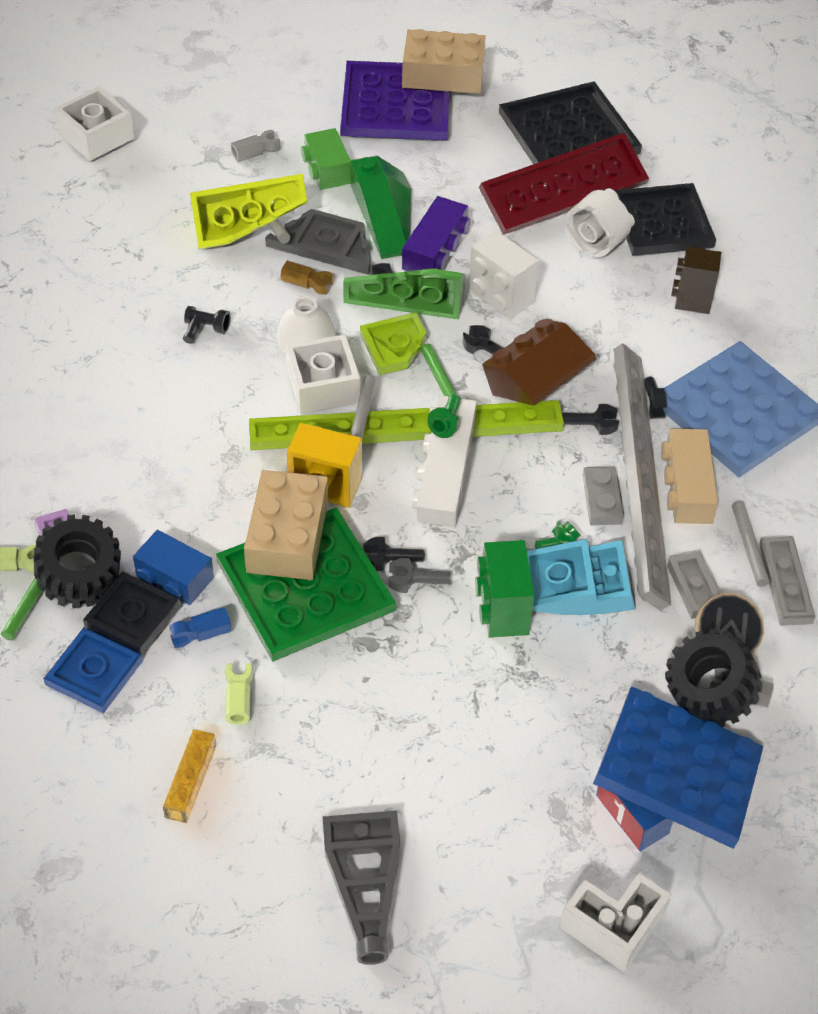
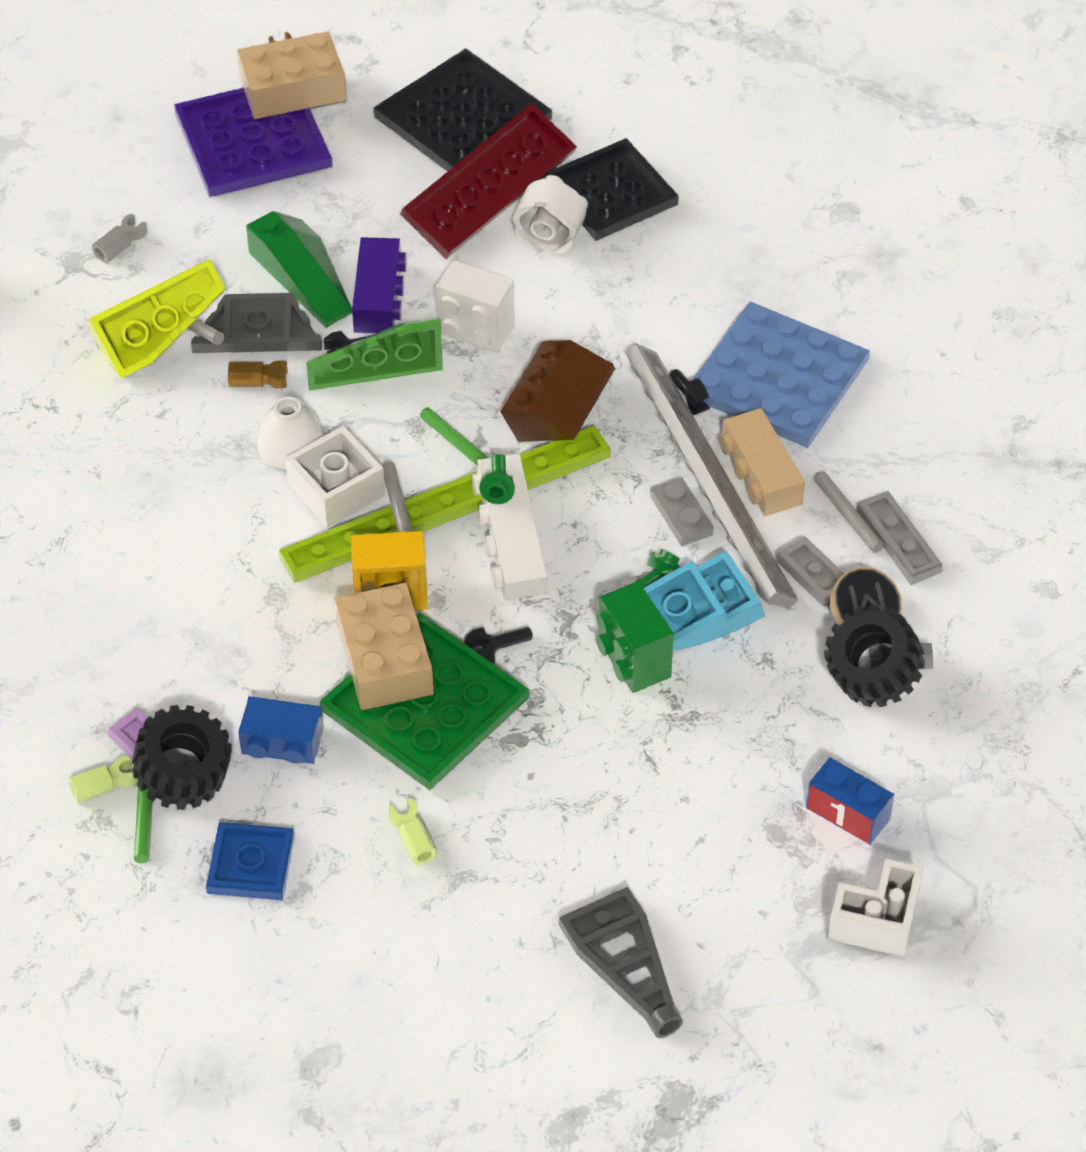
camera: 20 degrees left, 0 degrees up
(131, 613) = (262, 790): black plate -> none
(189, 776) = (406, 927): clear yellow piece -> none
(195, 318) = (161, 457): black piece -> none
(200, 627) = (341, 781): blue bar -> none
(326, 158) = (211, 230): bright green brick -> none
(393, 342) = (388, 417): lime plate -> none
(412, 576) = (528, 657): dark grey bar -> none
(480, 341) = (481, 387): black bar -> none
(596, 419) = (639, 433): black bar -> none
(680, 767) = (879, 749): blue plate -> none
(697, 279) = (680, 249): dark brown brick -> none

